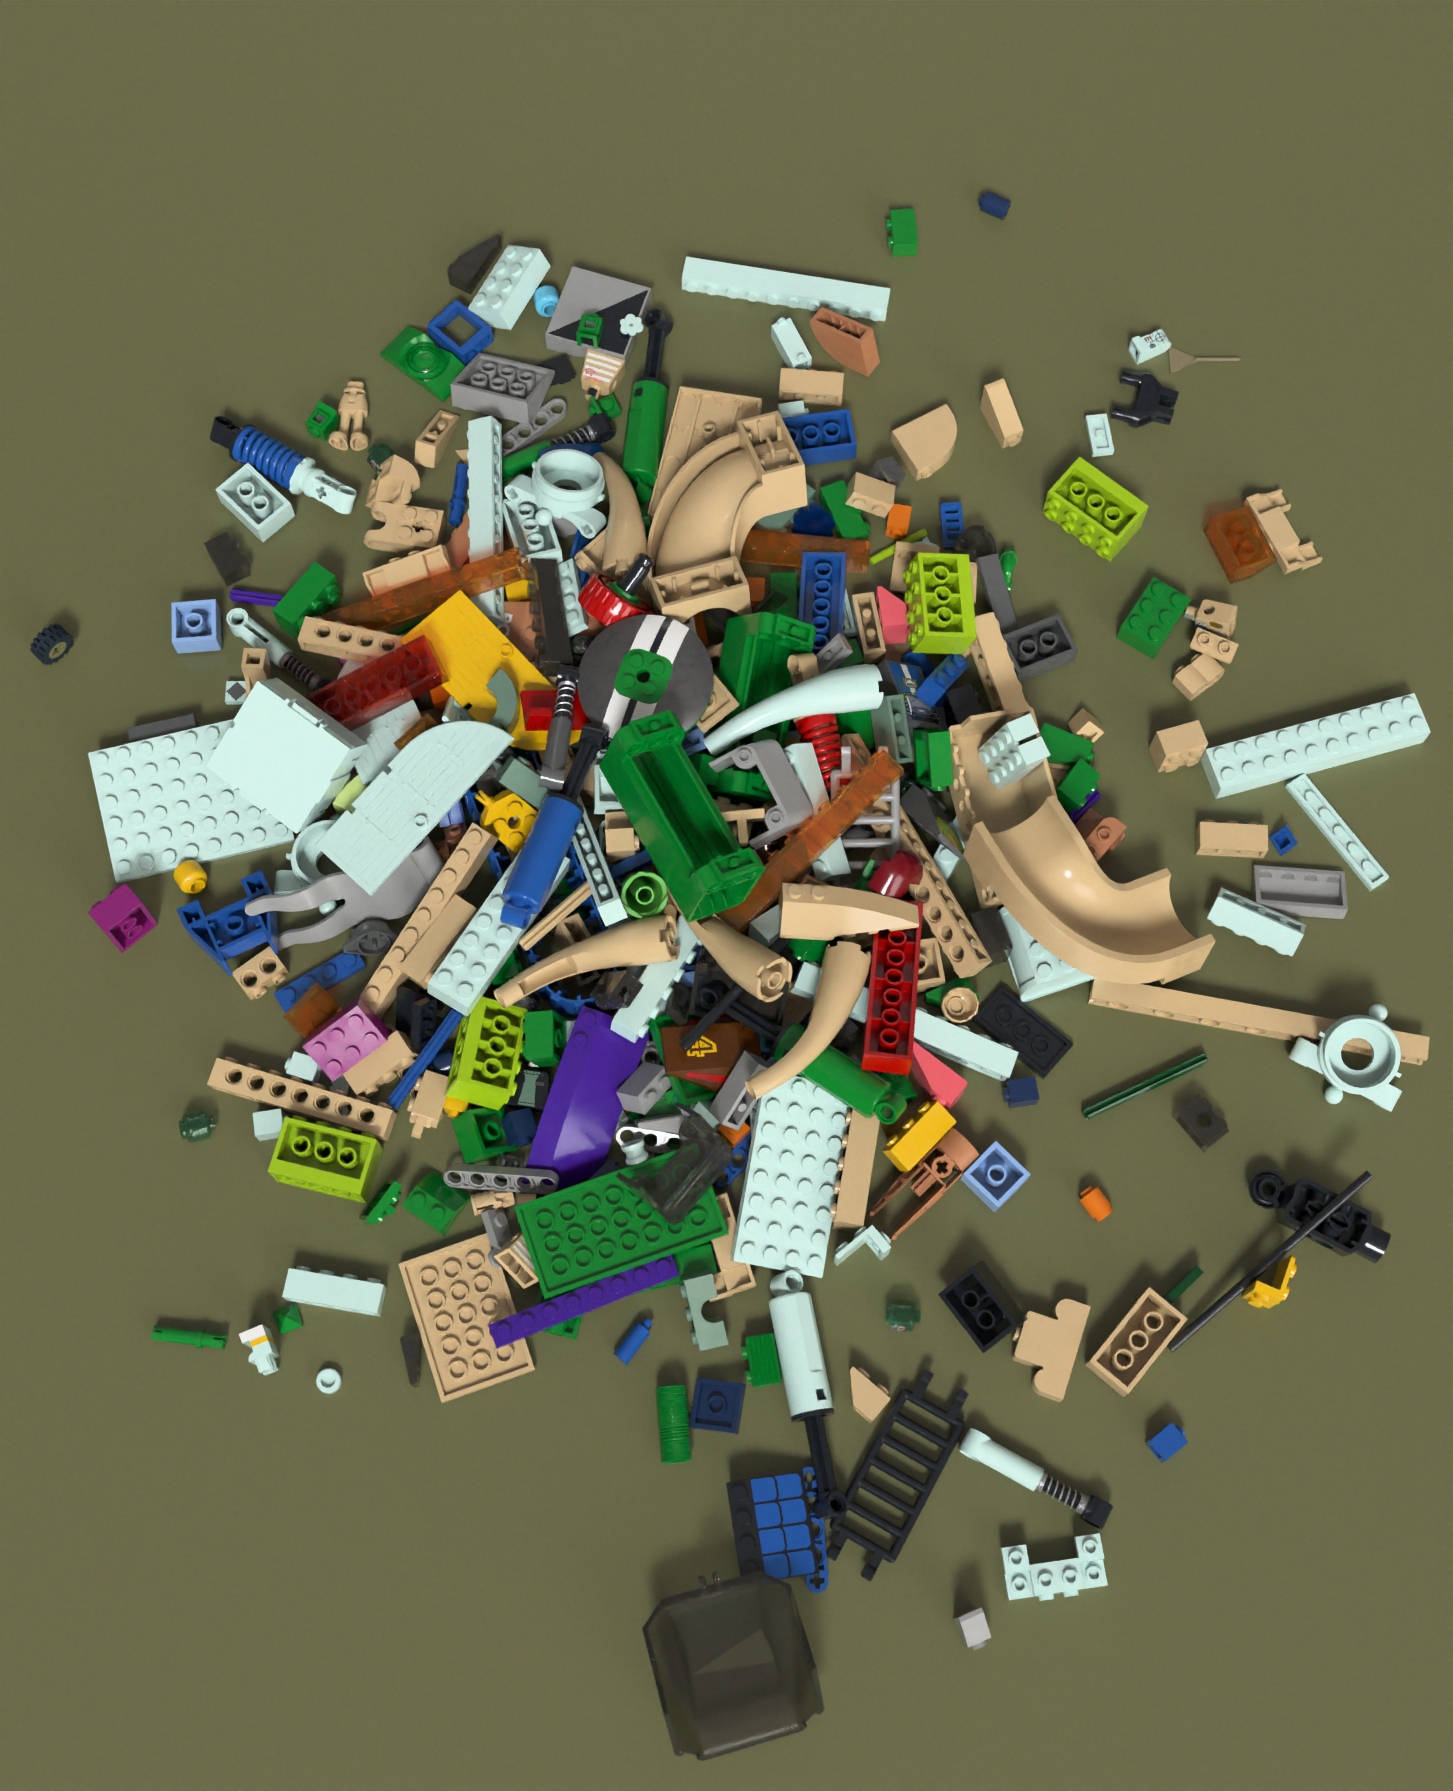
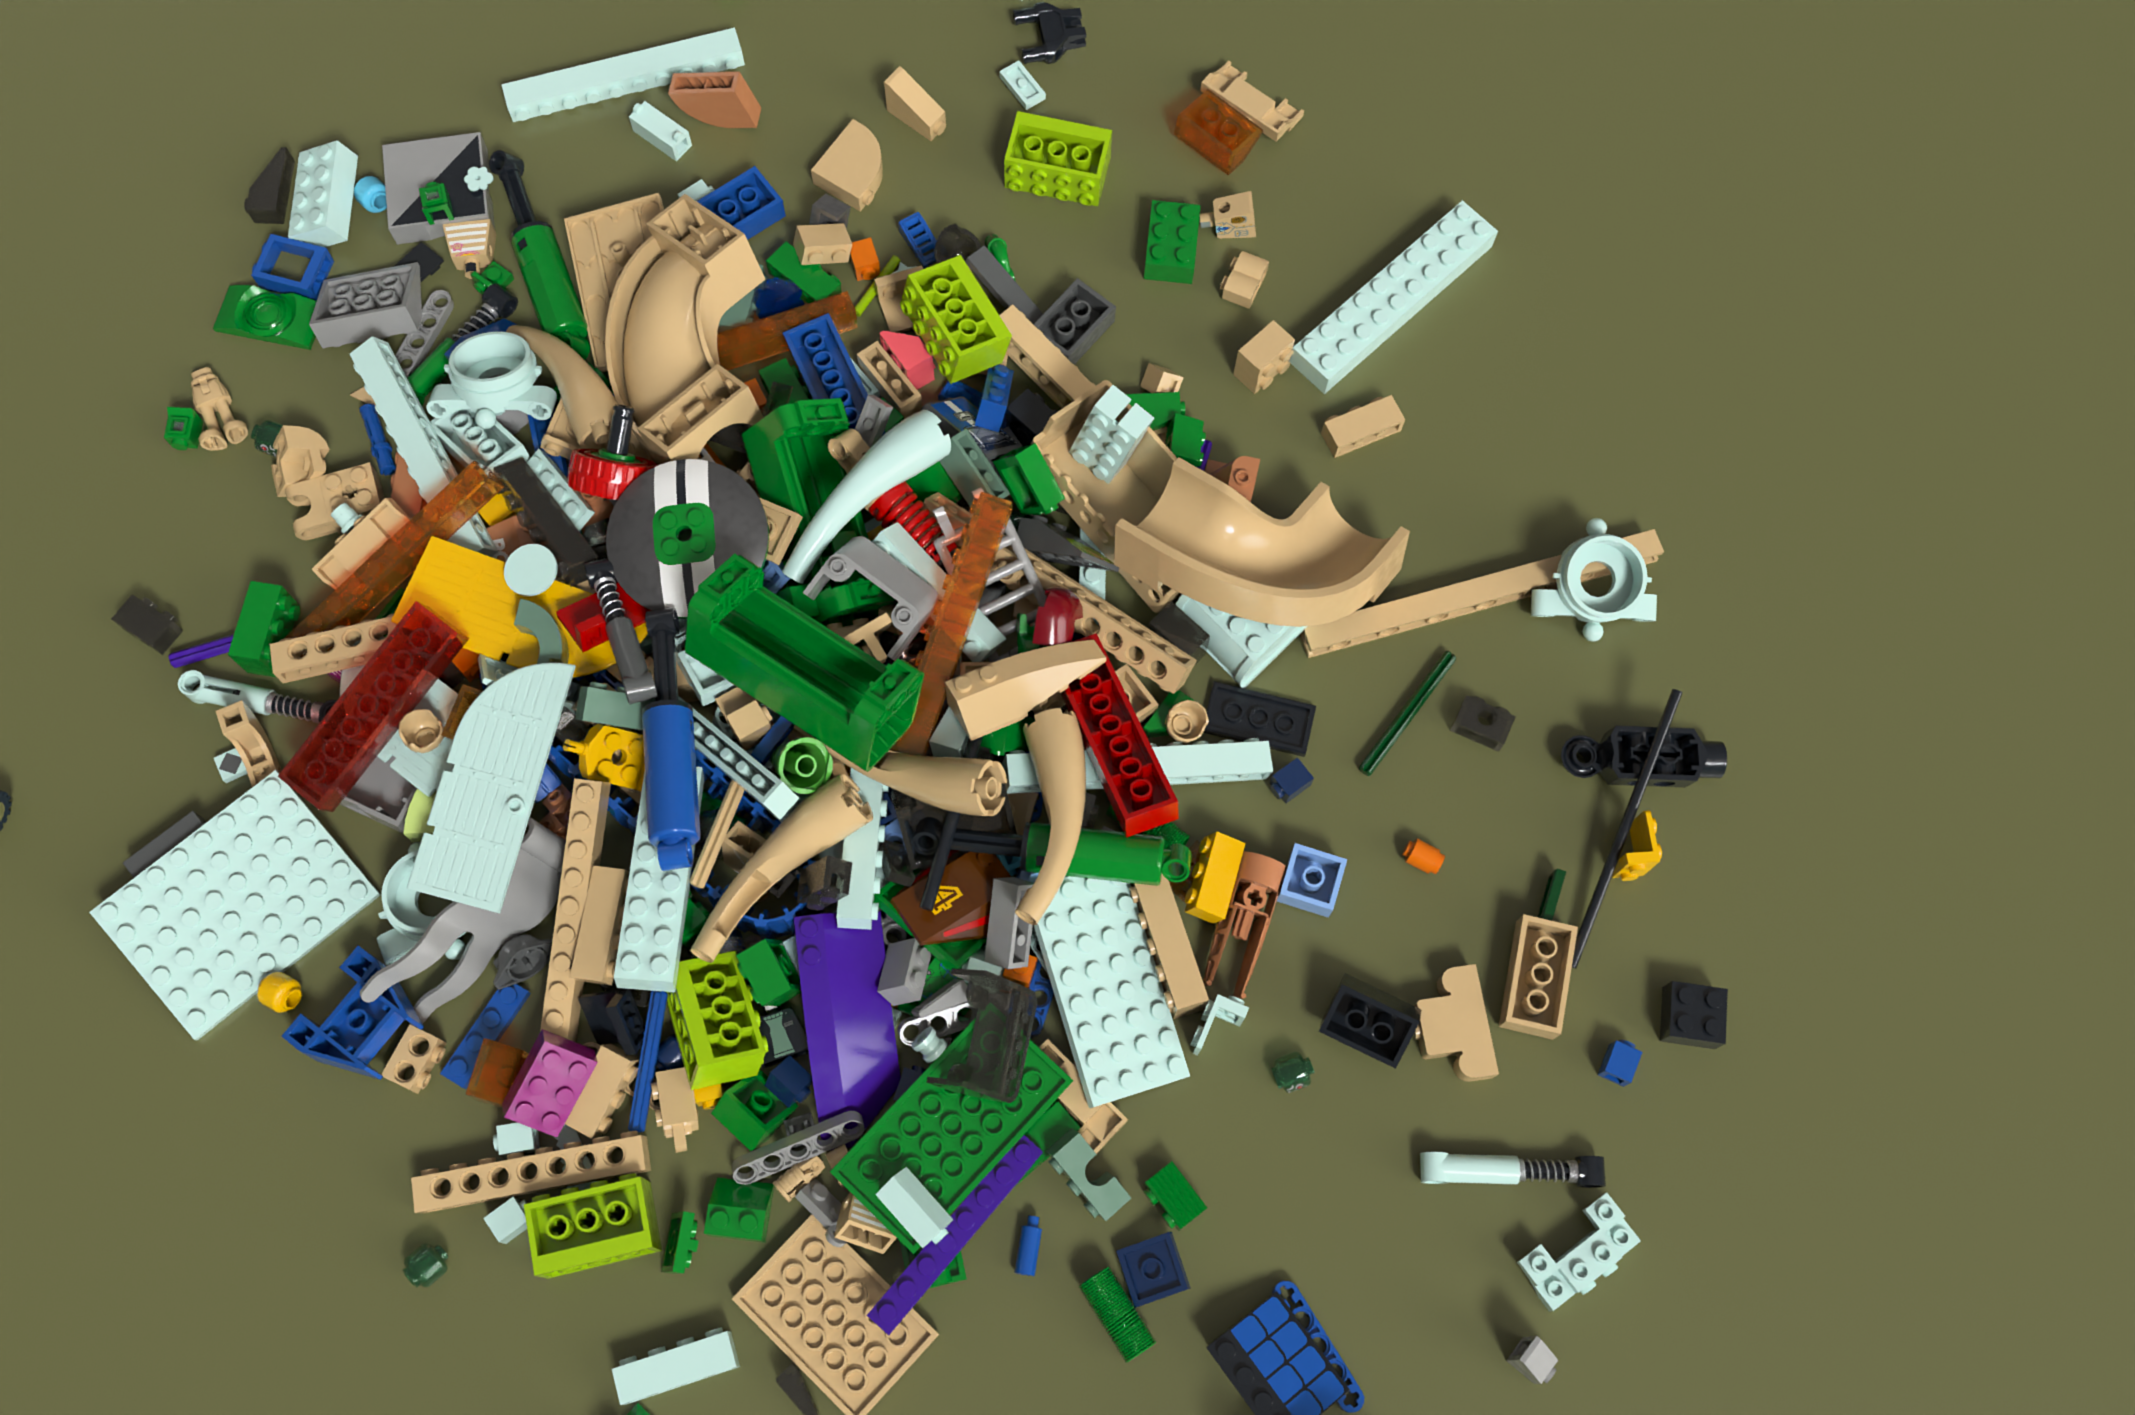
camera: 30 degrees left, 0 degrees up
(122, 917) = (222, 1076): magenta brick -> none
(196, 626) = (148, 713): light blue brick -> none
(255, 502) = (149, 548): light aqua brick -> none
(281, 464) = (157, 493): piece -> none
(286, 755) = (323, 805): light aqua piece -> none
(381, 733) = (421, 730): none -> tan hair
(405, 545) = (345, 517): none -> light aqua piece
(435, 439) = (320, 392): tan slope -> none
(518, 650) = (530, 570): none -> light aqua piece
(561, 1264) = (915, 1208): none -> light aqua brick
(806, 1381) = (1231, 1194): light aqua piece -> none
(811, 386) = (702, 161): tan brick -> none
(865, 1396) = (1299, 1177): tan slope -> none
(924, 1489) = (1409, 1241): black bar -> none
(936, 1079) = (1205, 810): coral slope -> none
(1213, 645) = (1245, 242): tan bracket -> none
(1247, 1436) = (1693, 1015): none -> black brick
(1256, 922) = (1430, 496): light aqua brick -> none
(1283, 840) = (1412, 403): blue slope -> none
(1300, 891) = (1454, 447): light grey slope -> none
(1337, 832) = (1458, 371): light aqua tile -> none

